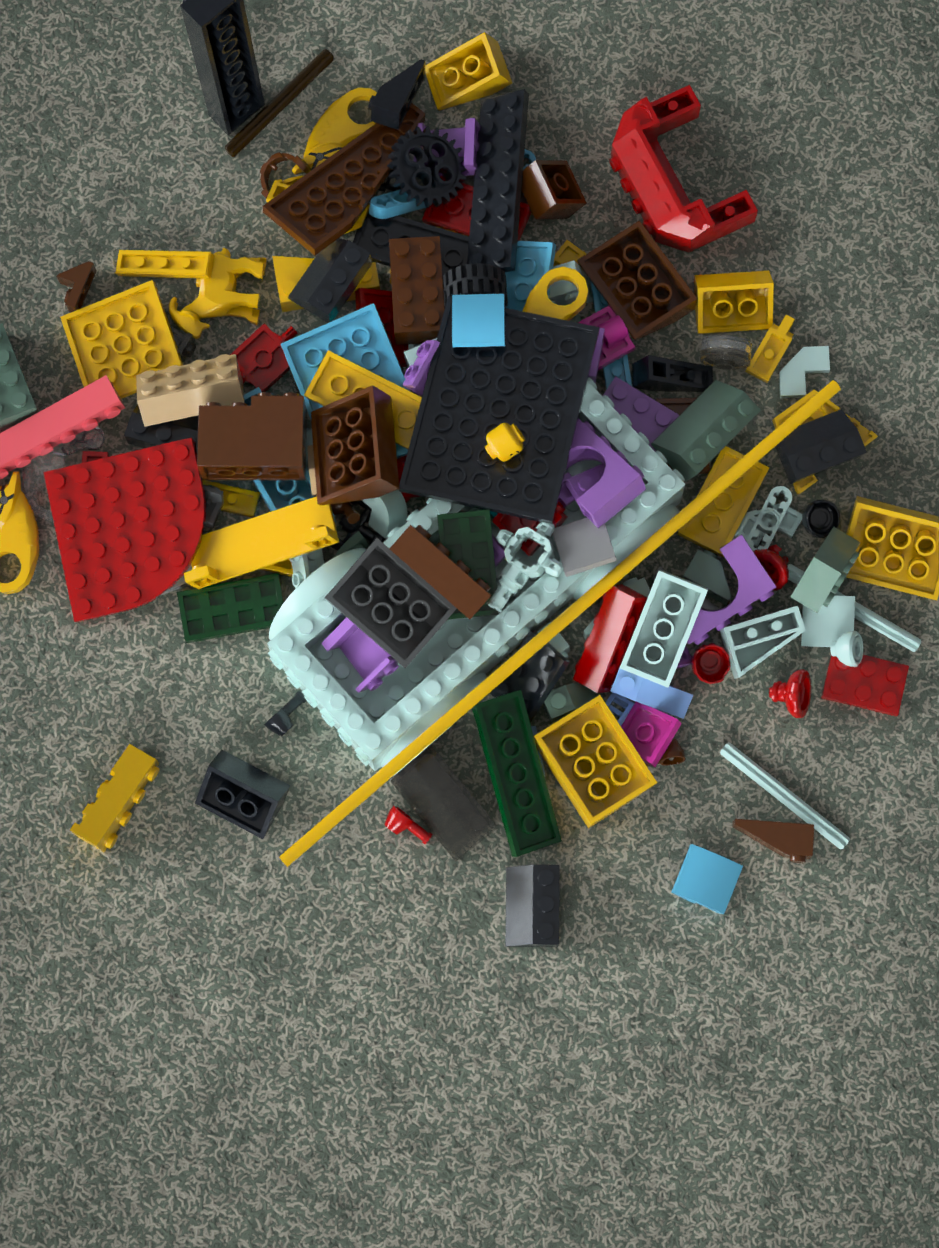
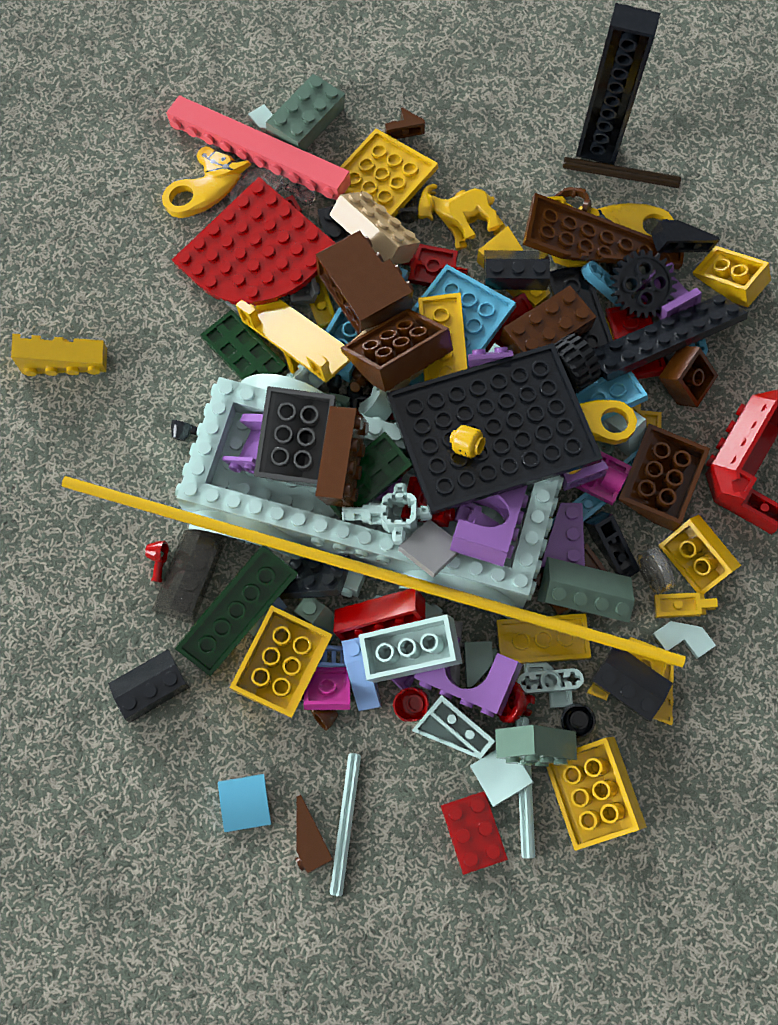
camera: 55 degrees right, 5 degrees down
(164, 264) = (456, 167): yellow tile -> none
(242, 794) = (114, 435): black slope -> none
(478, 320) = (547, 371): medium azure slope -> none
(794, 693) = (428, 782): red hair -> none
(848, 648) = (488, 802): light aqua brick -> none

